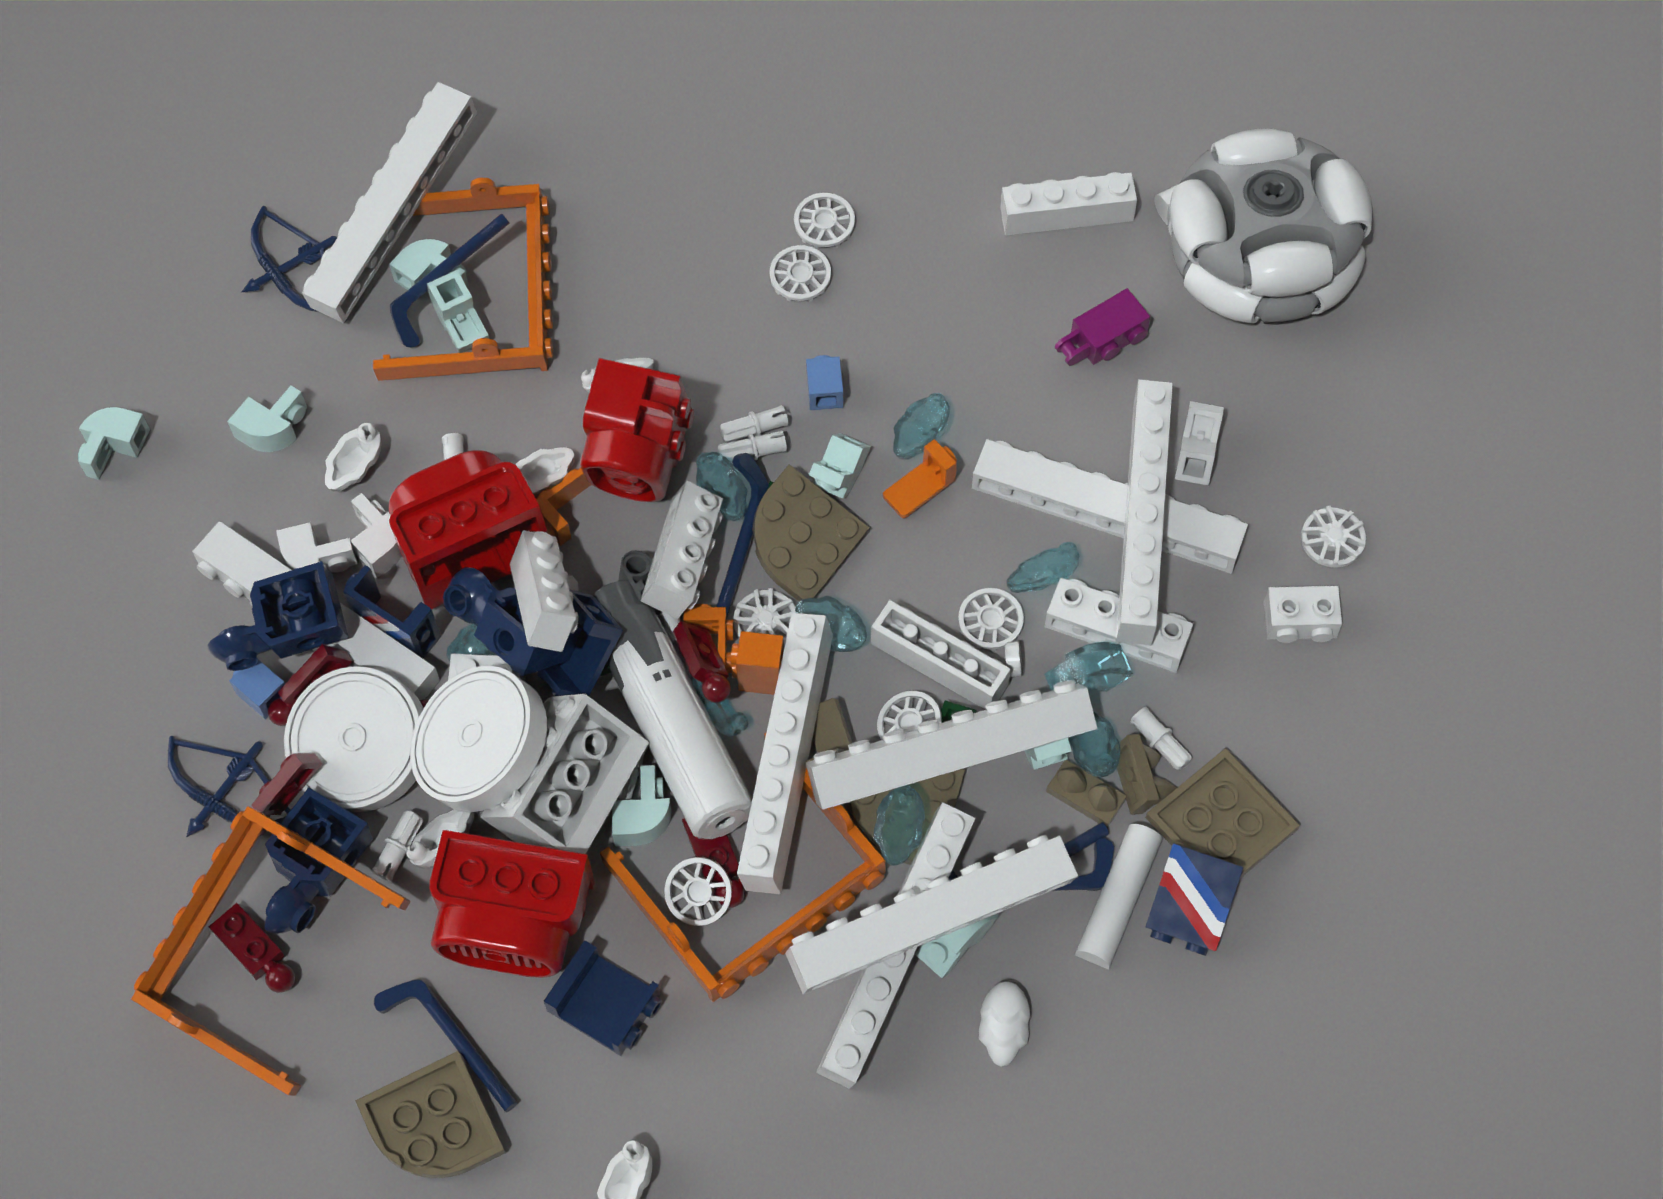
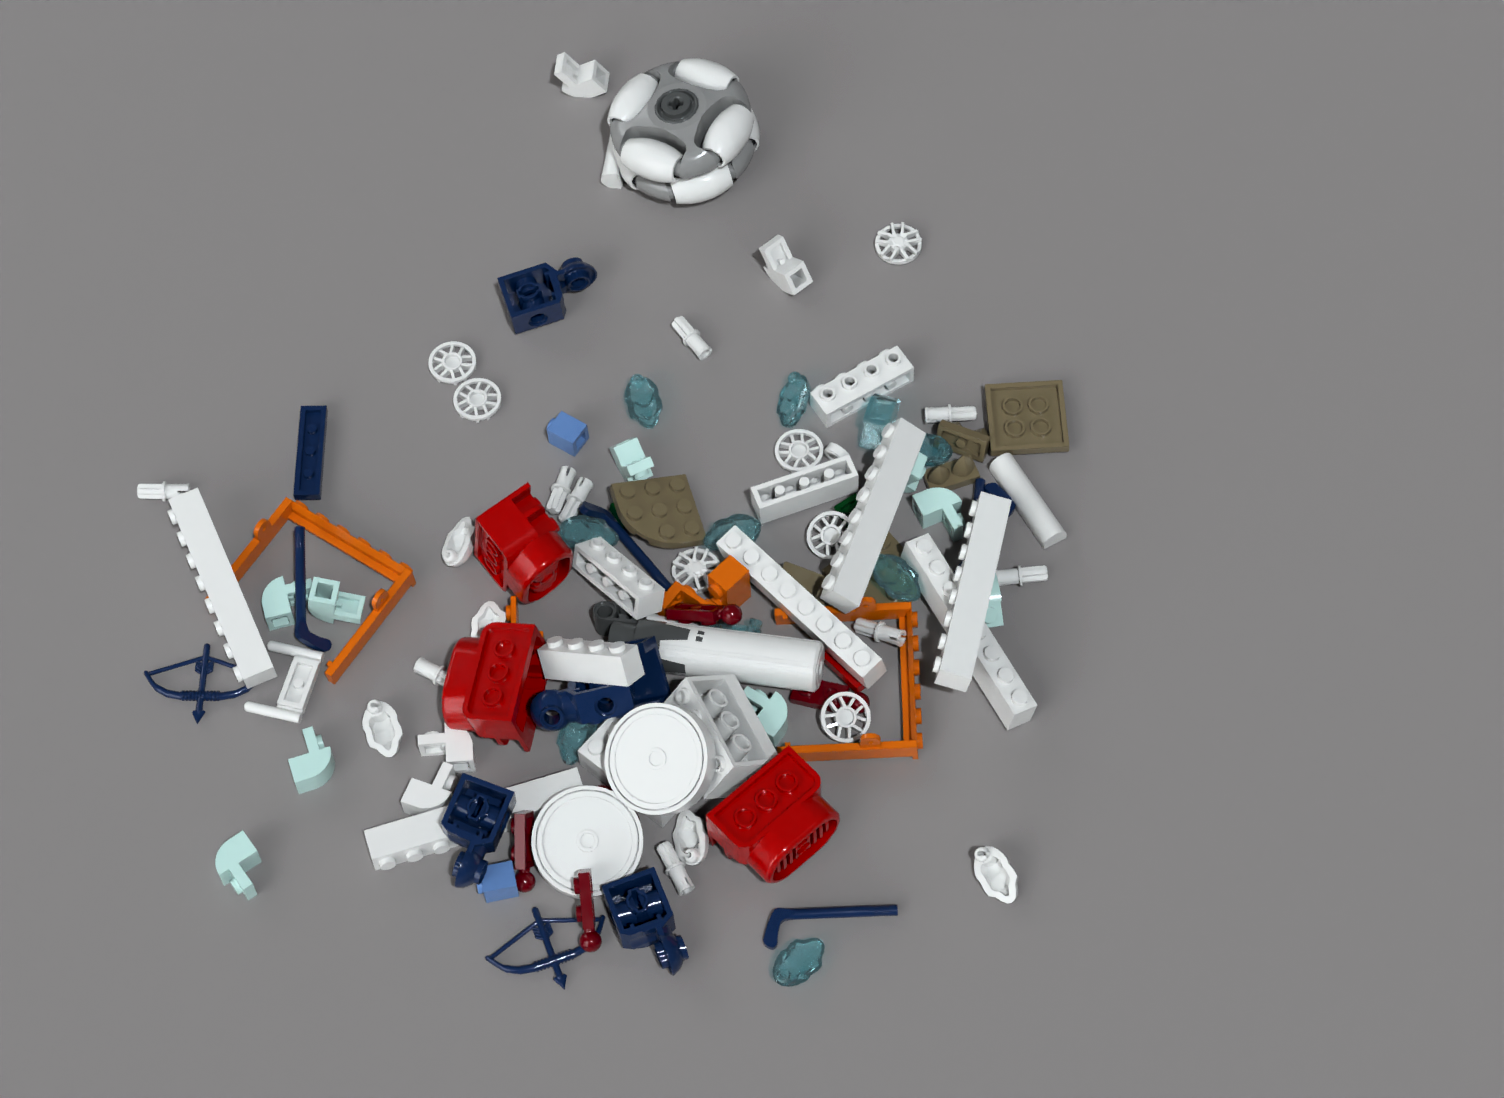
camera: 50 degrees left, 5 degrees down
(192, 919) = (632, 1010): orange piece -> none
(253, 948) = (674, 994): dark red plate -> none
(345, 347) = (297, 684): none -> white plate
(371, 1047) = (798, 962): none -> clear light blue arm
(416, 633) = (523, 772): dark blue panel -> none
(432, 1121) = (872, 958): dark tan plate -> none
(471, 78) = (160, 491): none -> white axle
(602, 1000) = (873, 815): dark blue panel -> none
(615, 170) = (310, 453): none -> dark blue plate
(830, 855) = (880, 631): none -> white axle
(924, 481) = (680, 424): orange bracket -> none
(962, 237) = (536, 293): none -> dark blue brick
(1004, 1022) = (1056, 610): white arm -> none
(1016, 953) = (1022, 575): none -> white axle
(1032, 805) = (938, 506): none -> light aqua brick
(1039, 417) = (691, 337): none -> white axle
(1068, 203) = (565, 223): white brick -> none
(1101, 503) = (781, 340): white brick -> none
(1105, 329) = (666, 263): magenta brick -> none
(1144, 513) = (811, 317): white brick -> none
(1193, 899) = (1065, 459): panel -> none
(1256, 91) = (581, 80): none -> white brick
(1302, 613) = (934, 290): white brick -> none

